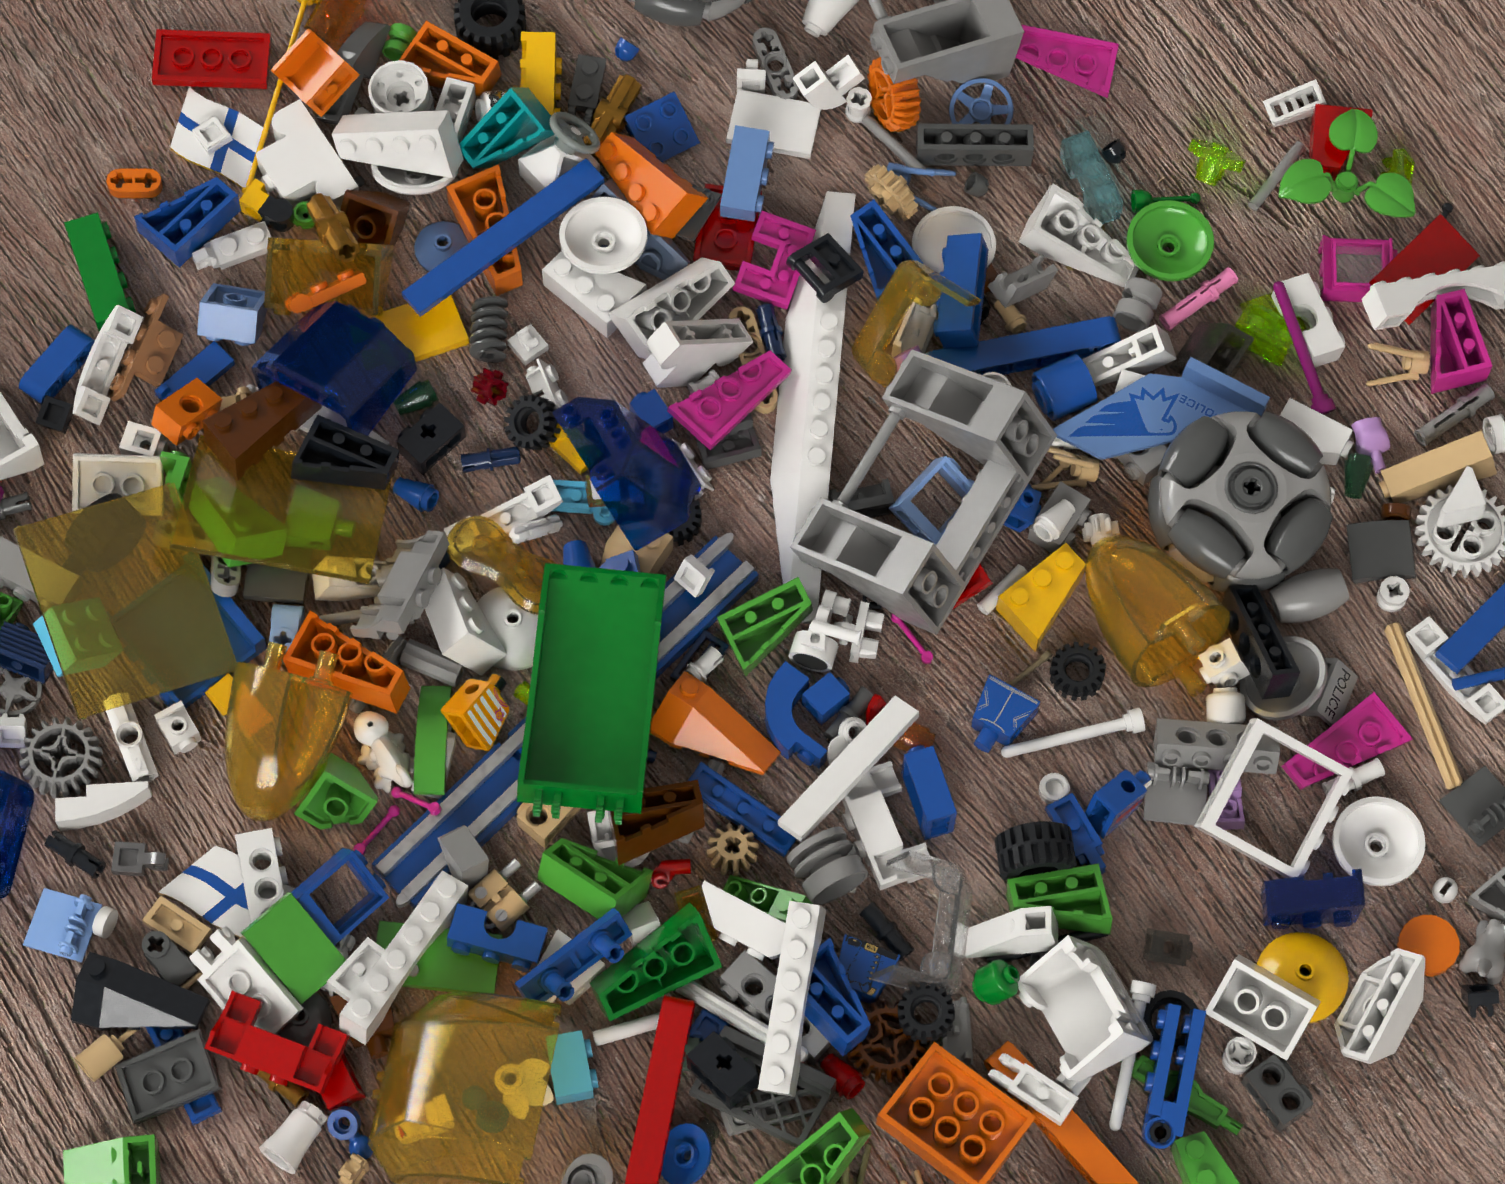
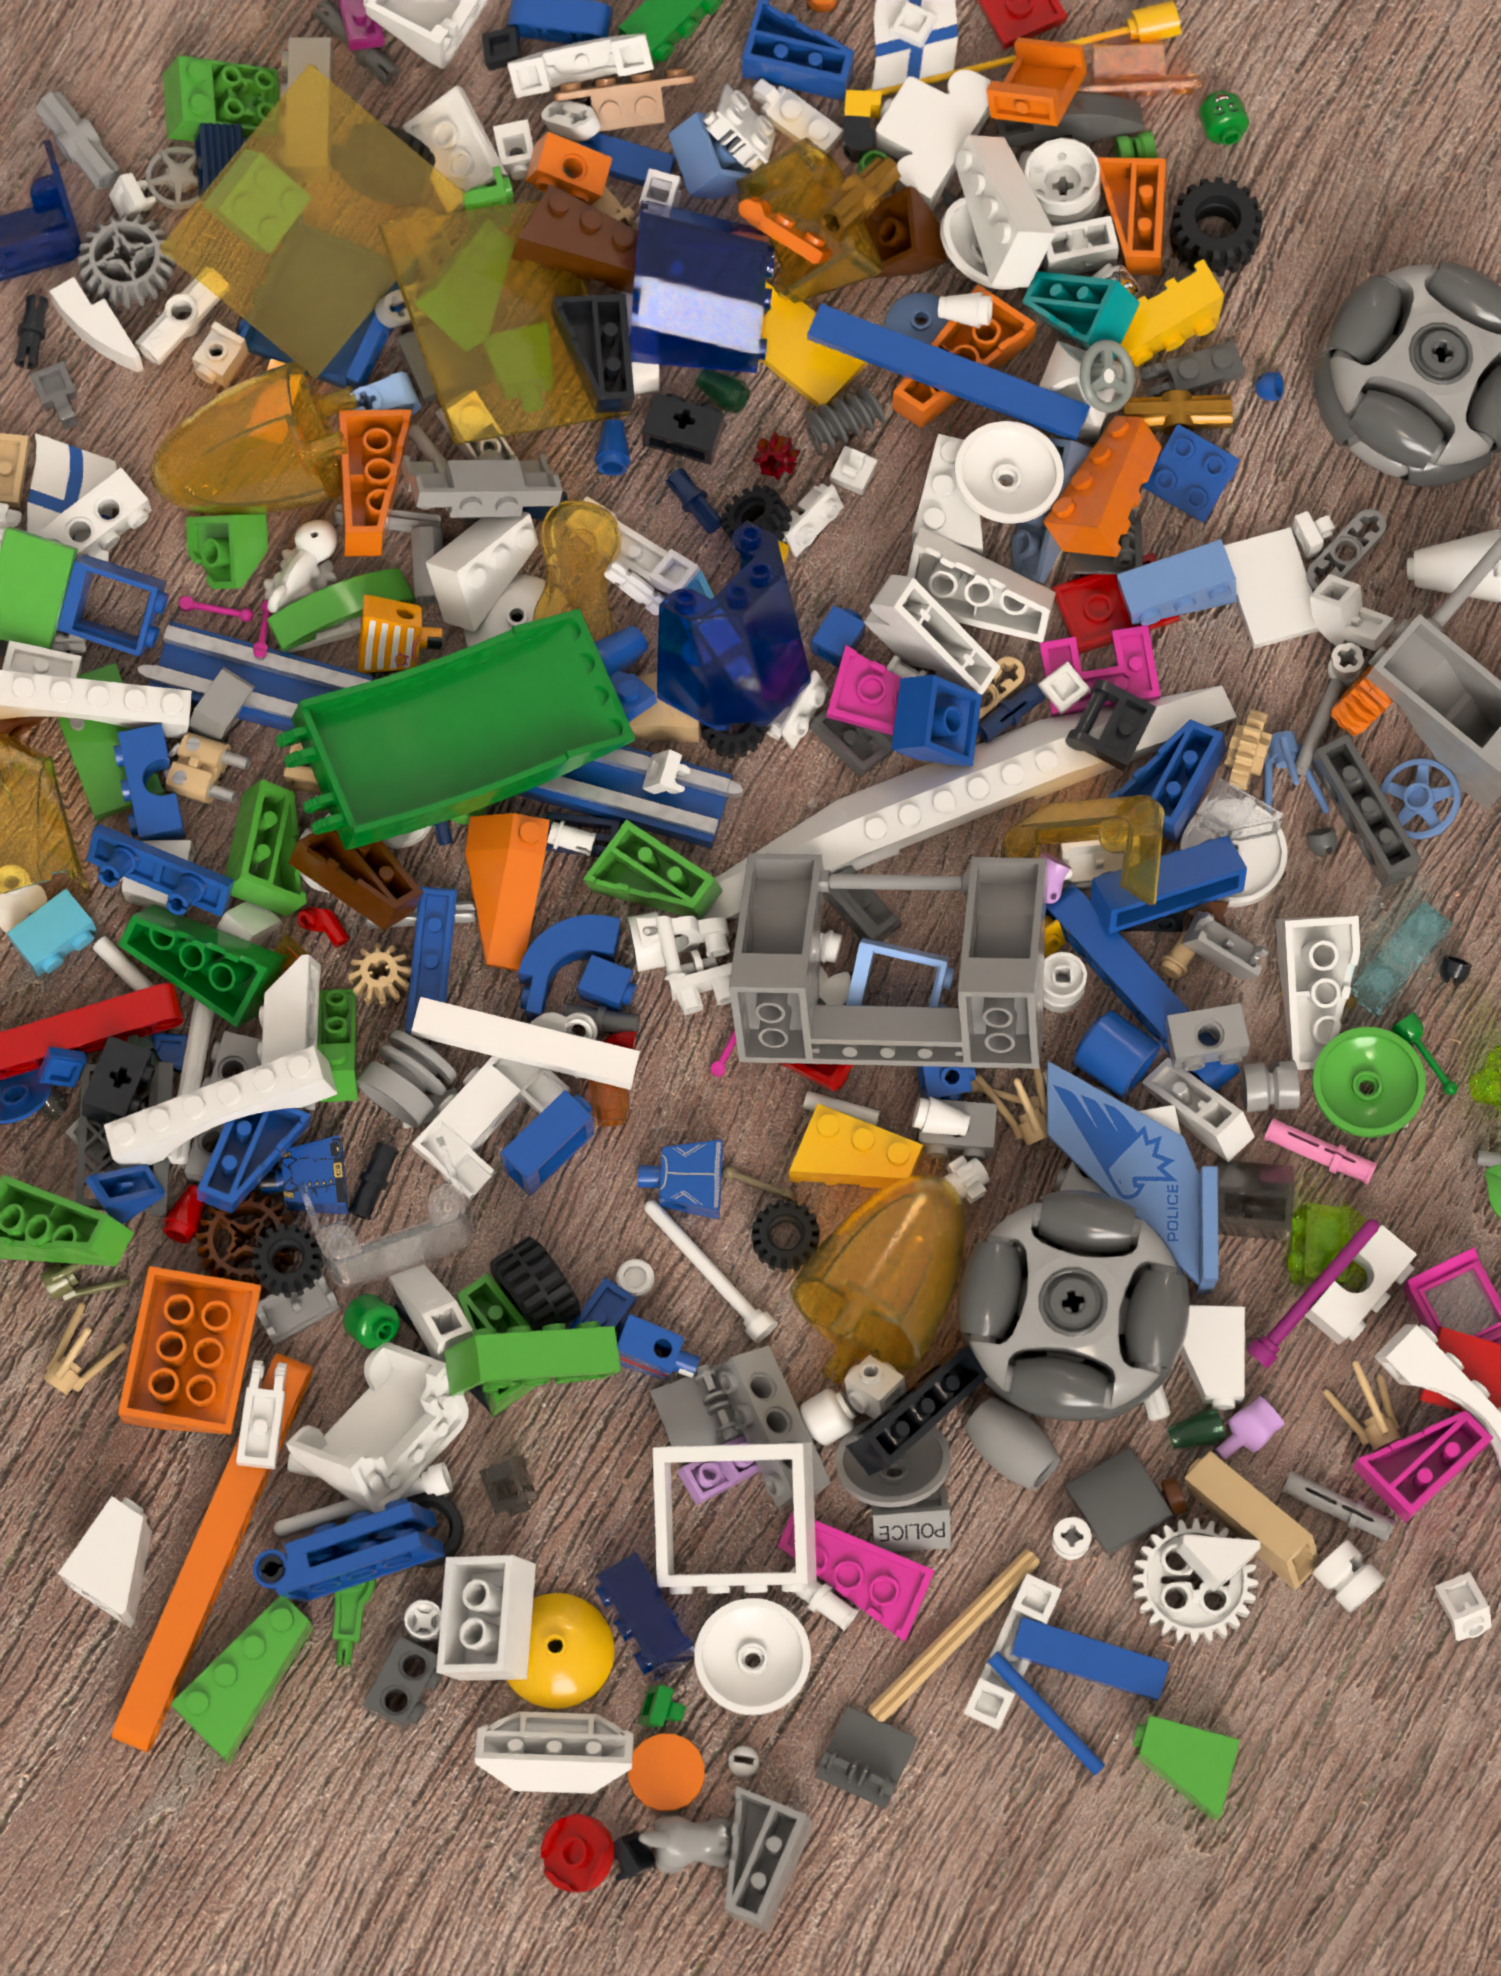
camera: 65 degrees right, 5 degrees up
(144, 392) = (571, 120): none -> white beam
(229, 282) = (752, 130): none -> white hinge
(243, 357) = (661, 188): none -> white leg
(465, 198) = (968, 309): none -> white cone
(684, 1107) = (61, 1067): none -> blue tile
(760, 376) = (936, 721): none -> blue slope
(776, 286) = (1064, 687): none -> white tile
(815, 1100) = (126, 1191): none -> blue slope
(931, 225) = (1235, 814): none -> clear slope
(1088, 304) = (1223, 1022): none -> light grey brick
(1095, 874) = (532, 1357): none -> bright green wedge
(1380, 925) = (658, 1707): none -> green tile
(1461, 1031) = (577, 1853): none -> red tile

